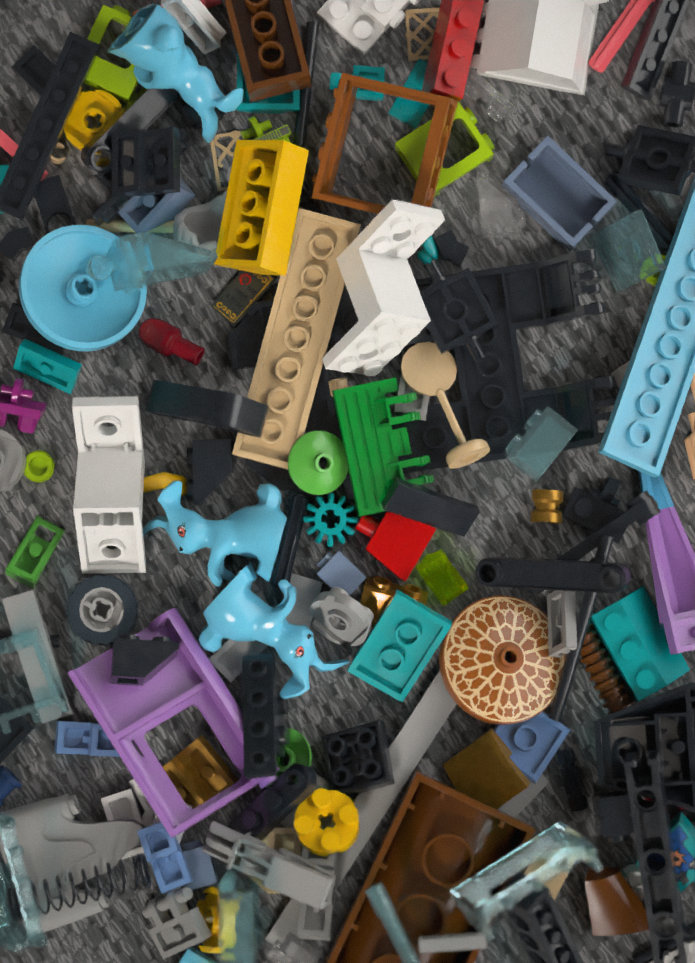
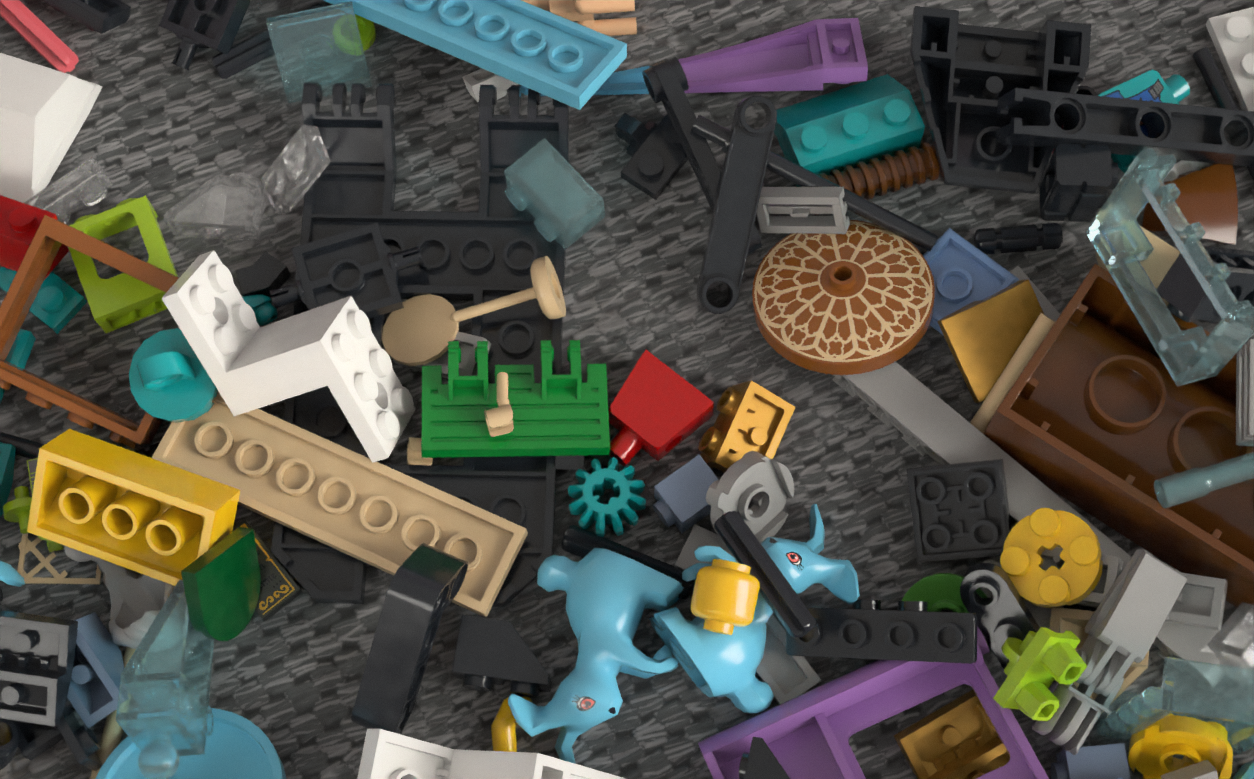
camera: 75 degrees left, 15 degrees down
(168, 340) = (298, 688): dark red arm -> none
(221, 280) = (224, 586): none -> dark green tile
(249, 816) = (1034, 667): none -> lime hips
(260, 609) = (725, 596): none -> yellow head
(283, 633) = (773, 584): none -> black axle
(304, 461) = (518, 508): bright green dish -> none
(353, 209) = (170, 378): none -> teal tile
(363, 438) = (499, 419): none -> tan hand
(399, 646) = (804, 426): teal plate -> none
(430, 507) = (614, 353): black tile -> none
(441, 577) = (715, 359): clear neon green bracket -> none
(460, 784) = (1012, 371): none -> tan bar
(532, 255) = (295, 169): none -> clear plate
(547, 506) = (637, 209): pearl gold wheel -> none
(559, 194) = (222, 122): sand blue piece -> none

